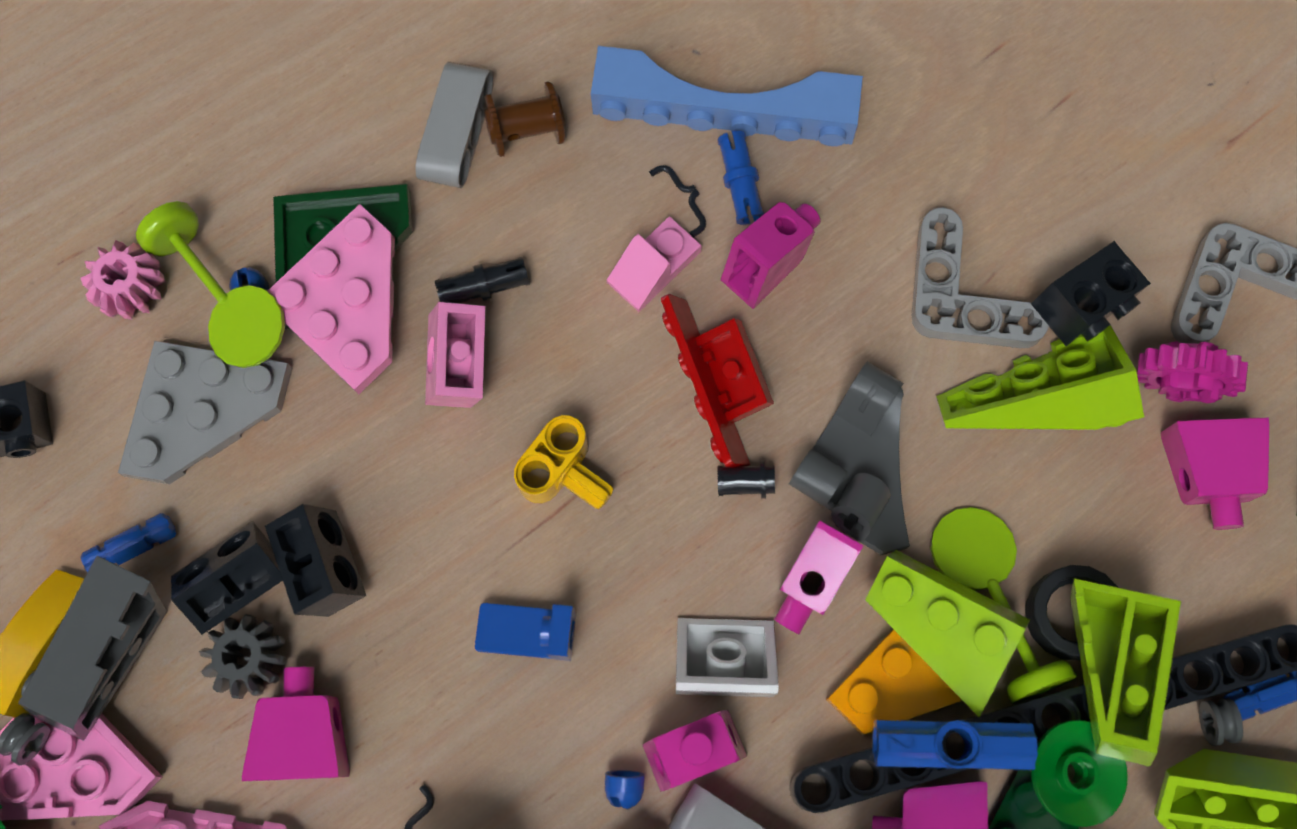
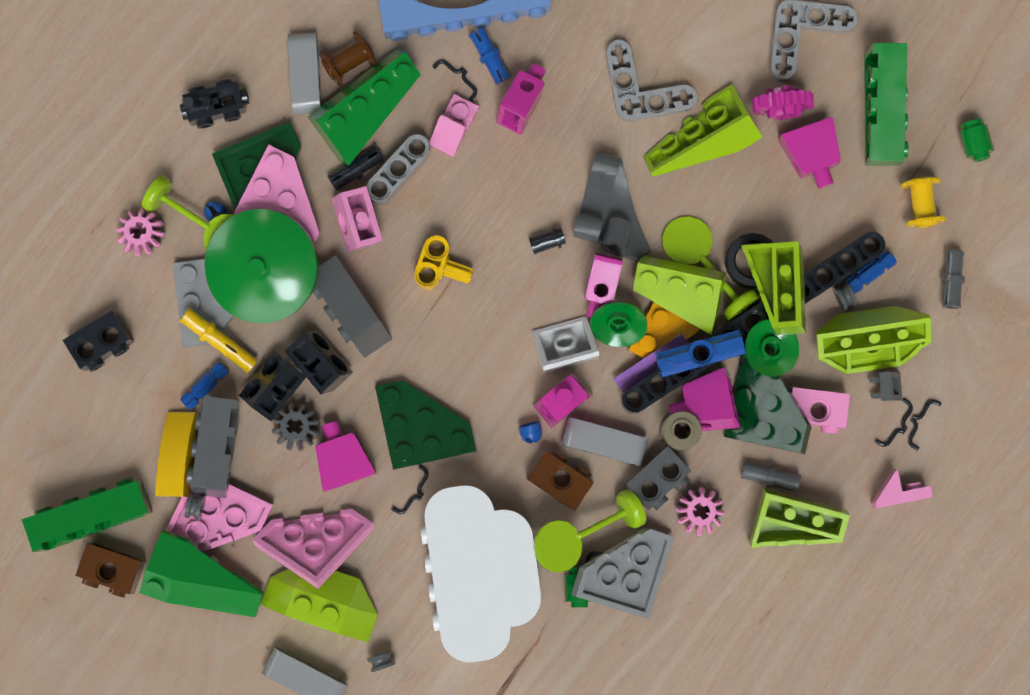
camera: 20 degrees left, 10 degrees up
(171, 476) = (208, 332): none -> yellow pin
(279, 381) = (261, 265): none -> green dish
(304, 127) = (205, 105): none -> black brick
(394, 490) = (349, 308): none -> dark grey wedge
(445, 722) = (419, 427): none -> dark green plate
(517, 193) = (362, 107): none -> green wedge
(526, 631) = (449, 364): blue bracket -> none
(556, 282) = (401, 156): none -> light grey beam
(723, 376) = (515, 183): red bracket -> none
(822, 664) = (618, 324): none -> green dish
(851, 735) = (646, 366): none -> medium lavender sticker
(1091, 293) = (714, 69): black brick -> none

